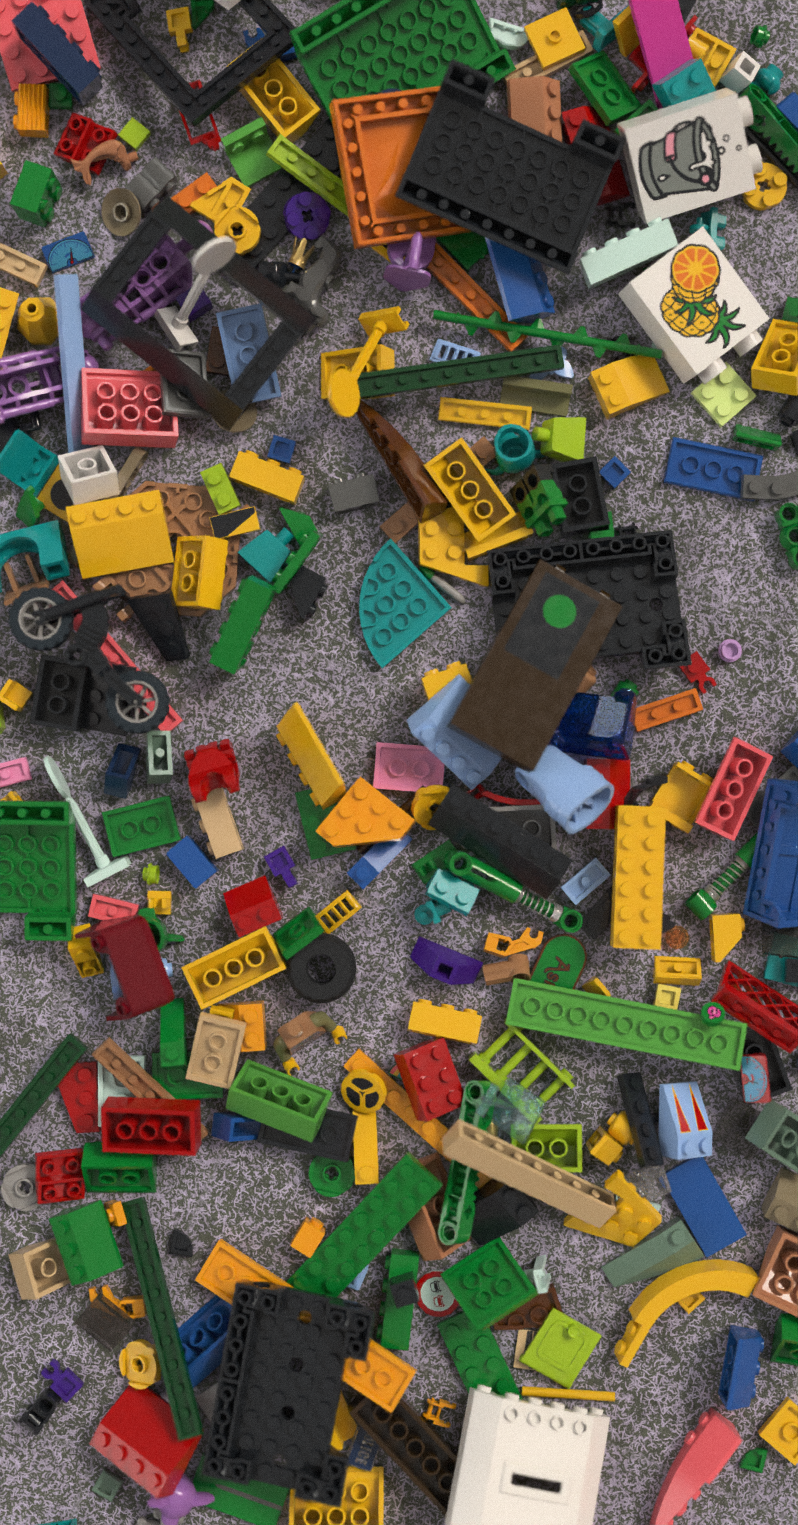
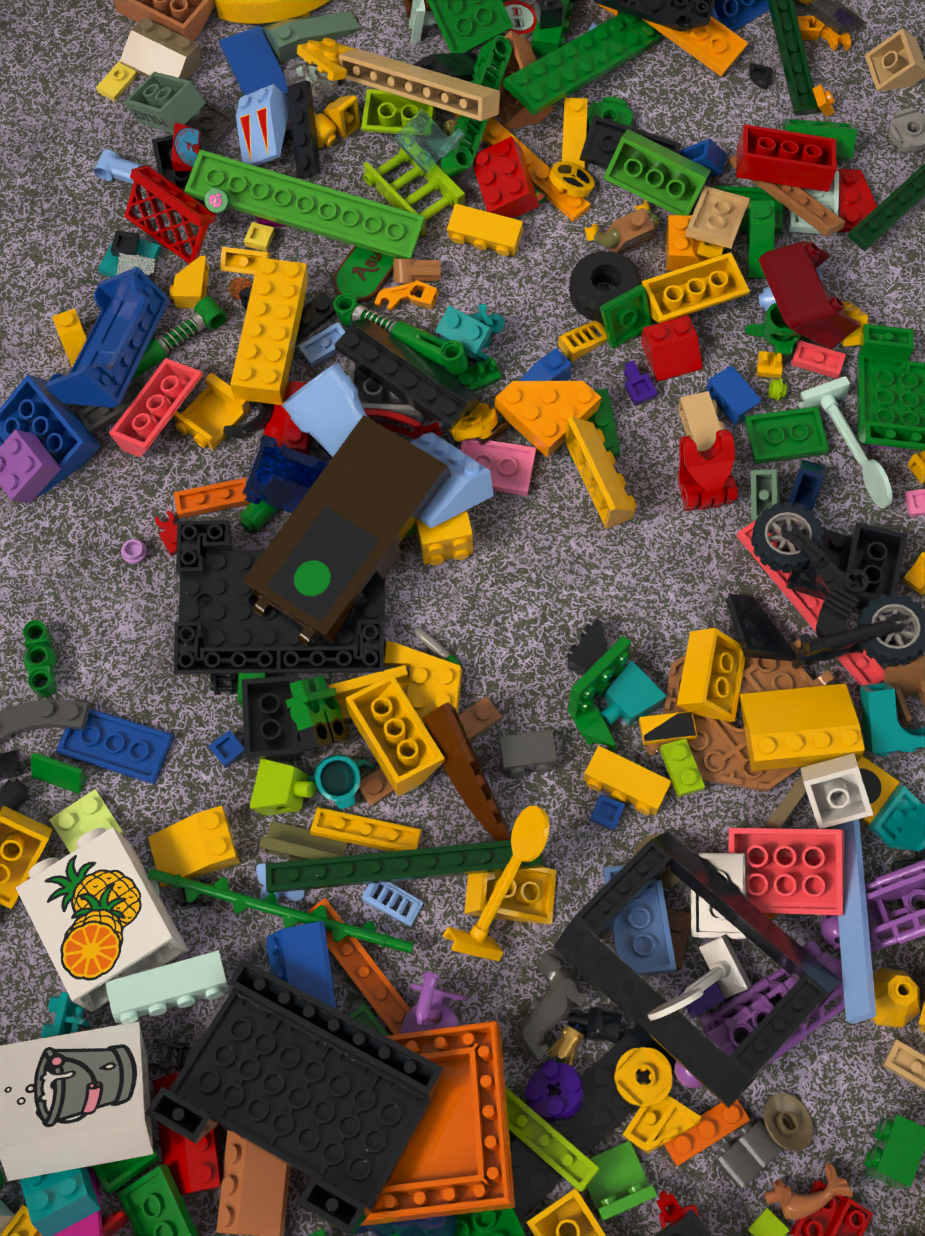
camera: 175 degrees left, 20 degrees down
(29, 508) = (904, 770): green slope -> none
(59, 1176) = (878, 133): red slope -> none
(68, 252) = (855, 1079): slope -> none
(86, 1242) = (853, 76): green slope -> none
(242, 624) = (666, 607): green wedge -> none
(308, 1236) = (636, 68): light orange brick -> none
(396, 604) = (491, 631): teal plate -> none
(445, 963) = (480, 281): dark purple slope -> none
(595, 986) = (327, 249): yellow slope -> none

